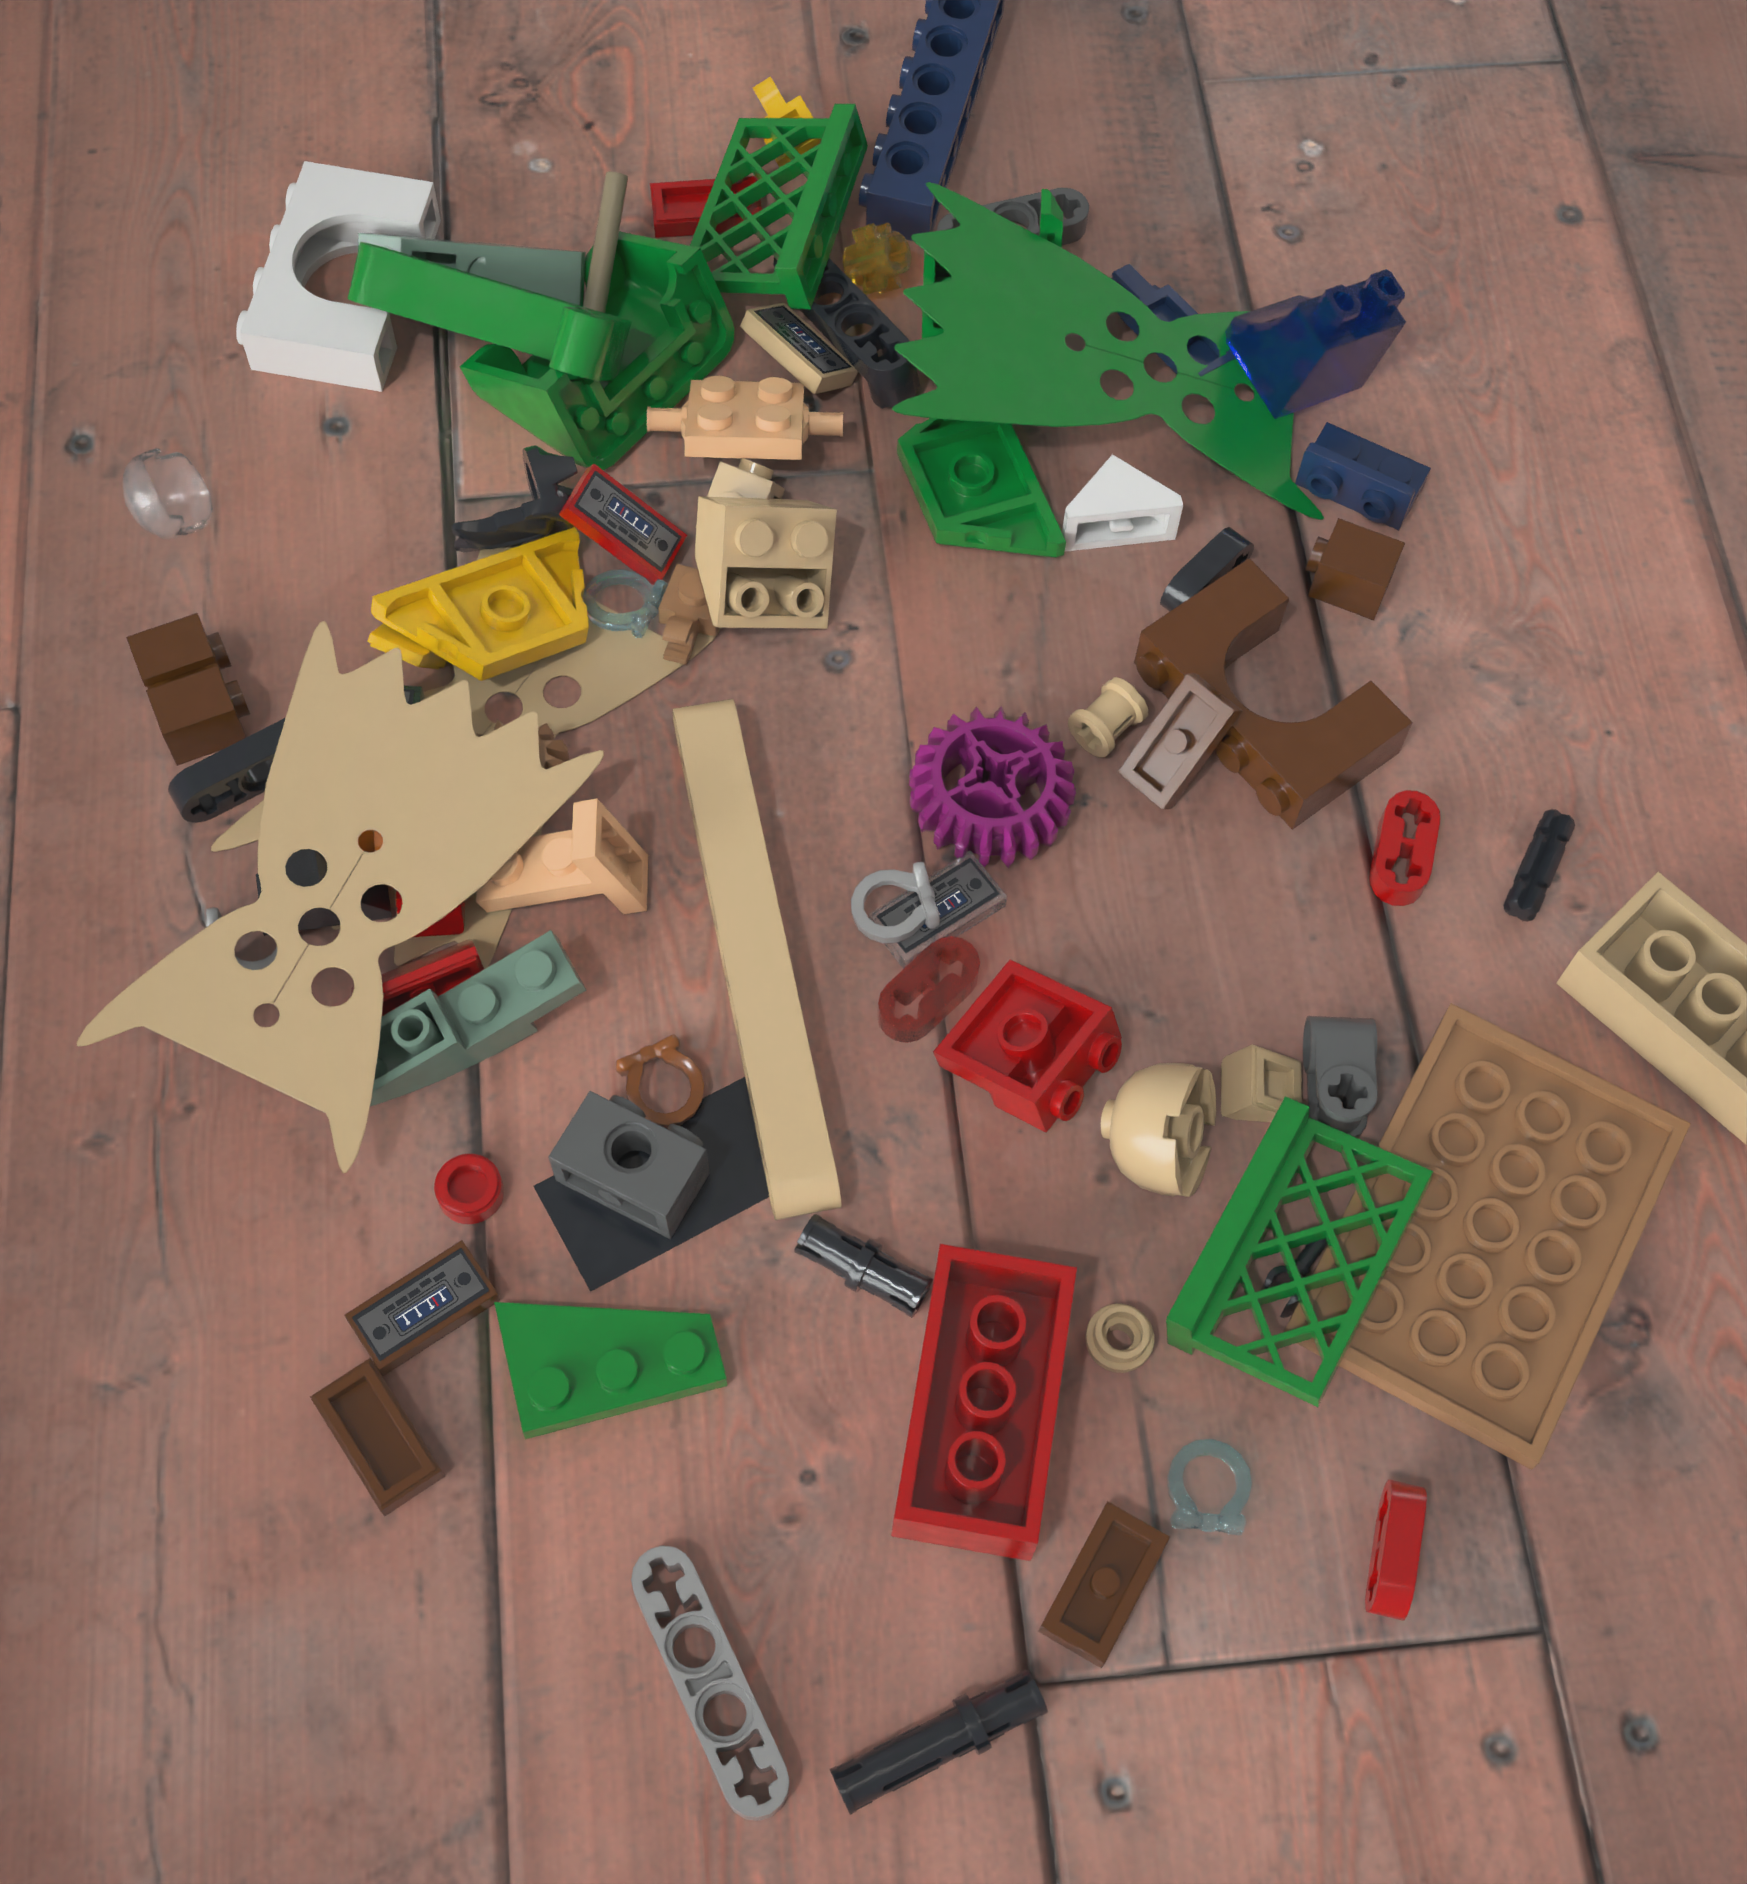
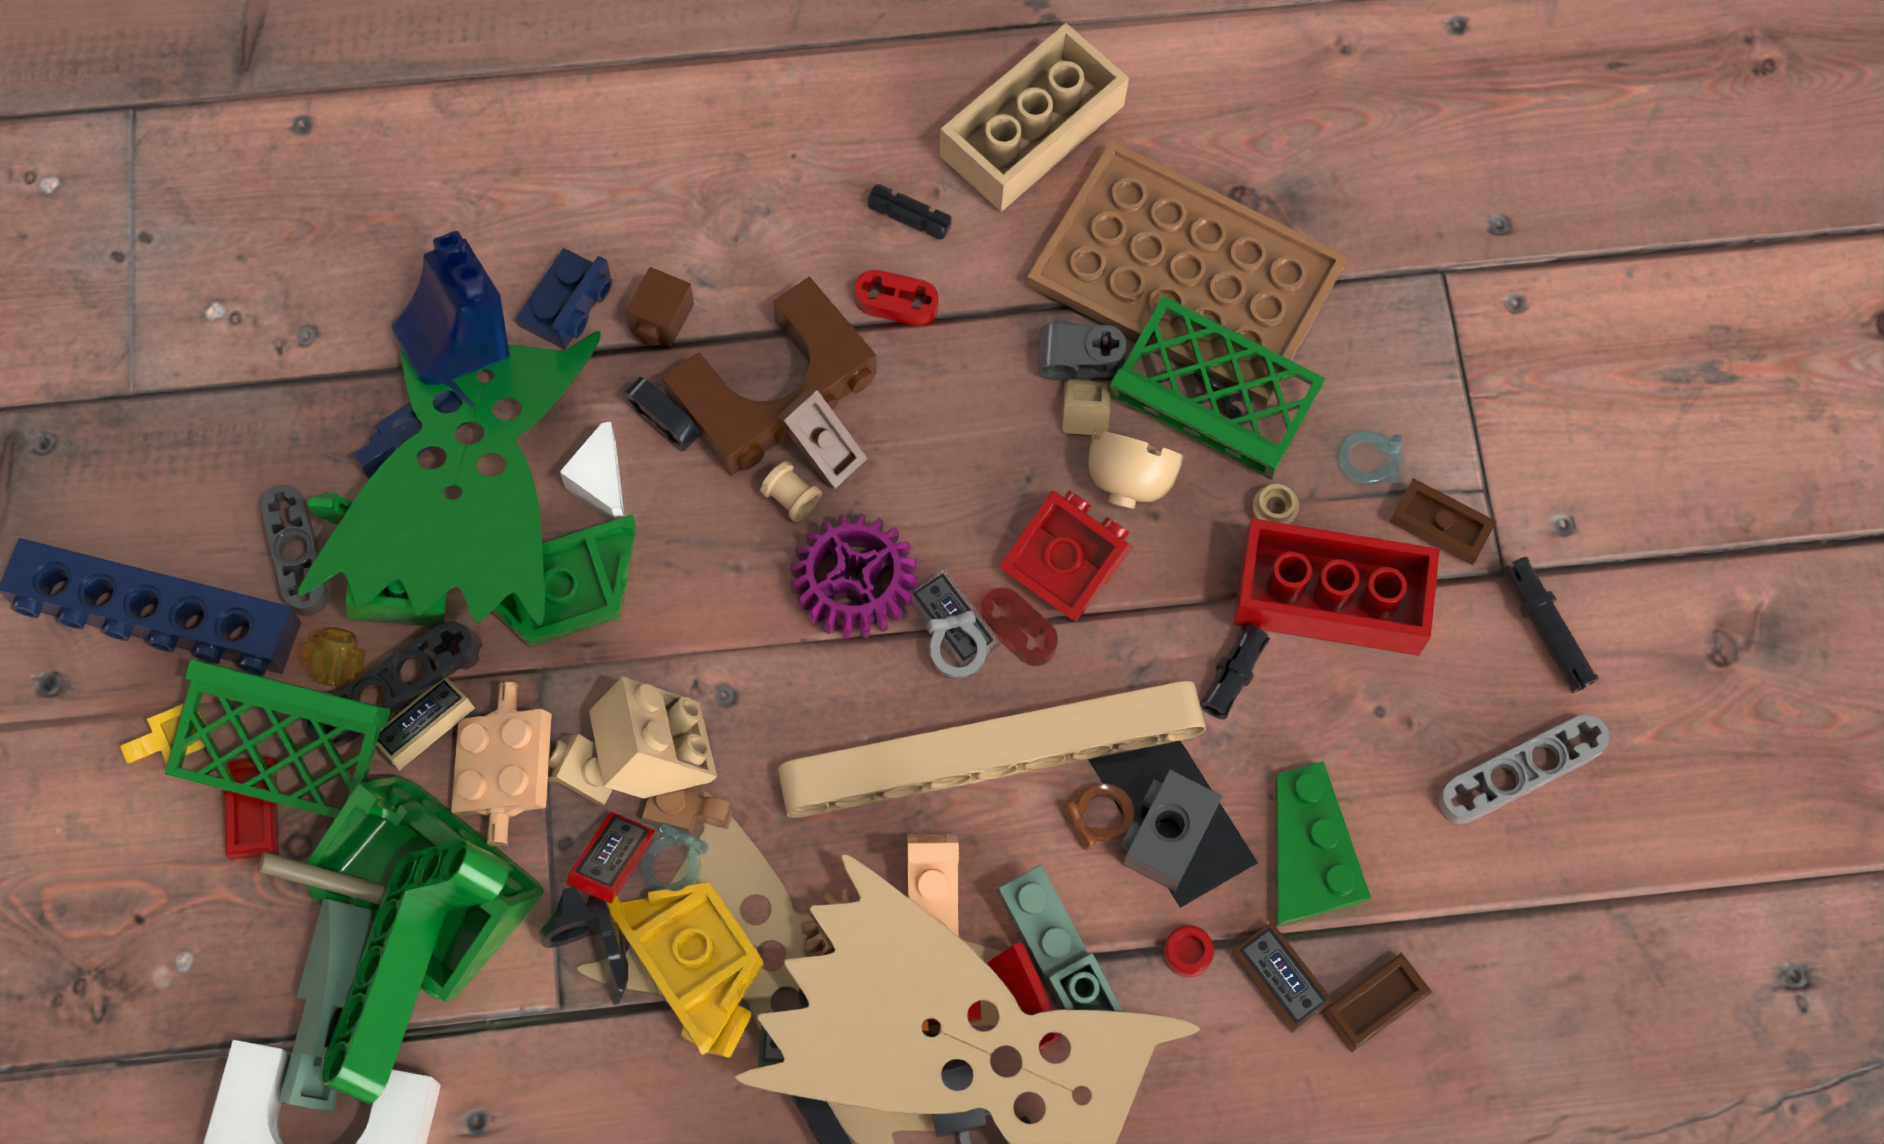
camera: 90 degrees left, 5 degrees up
(1396, 1550) = (1407, 346): red beam -> none

